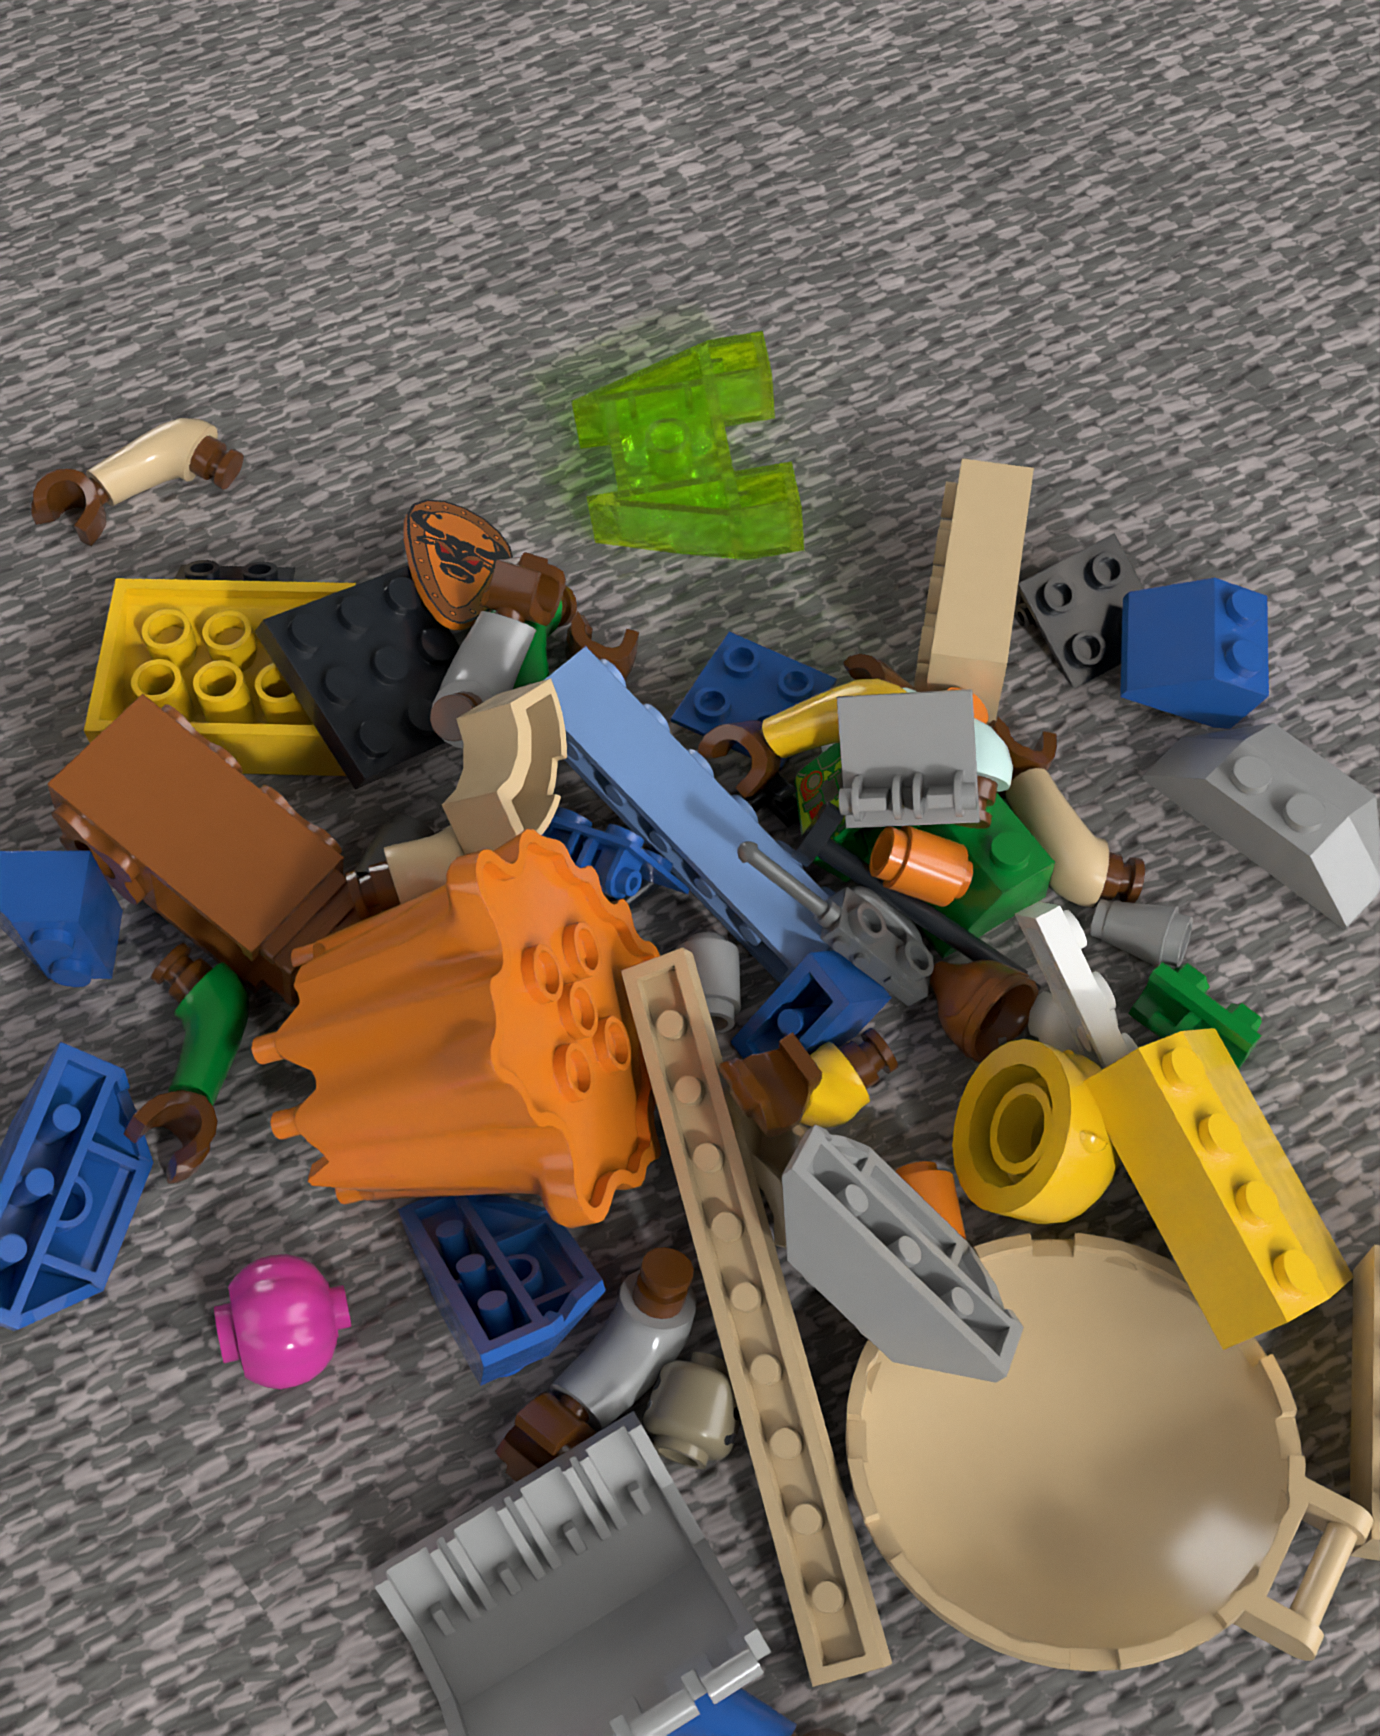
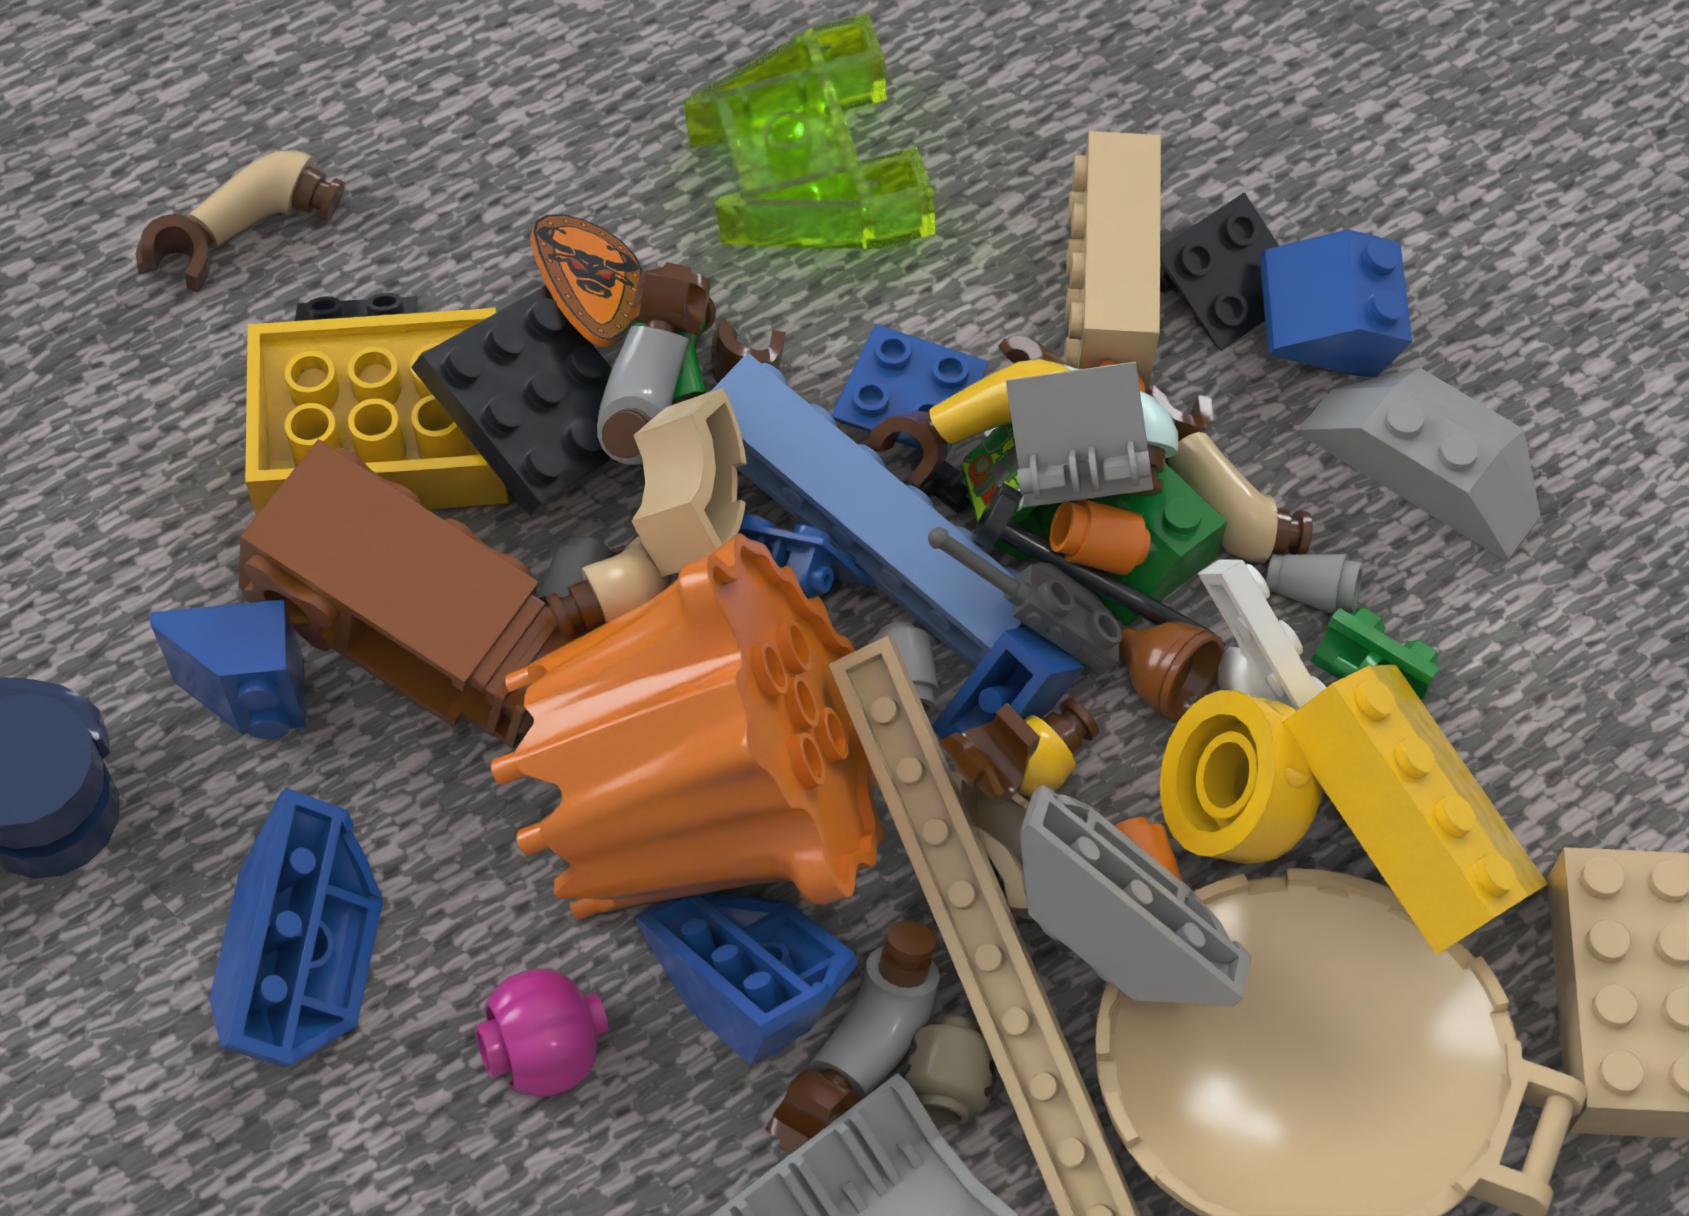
camera: 10 degrees left, 0 degrees up
(214, 1021) = (423, 759): piece -> none

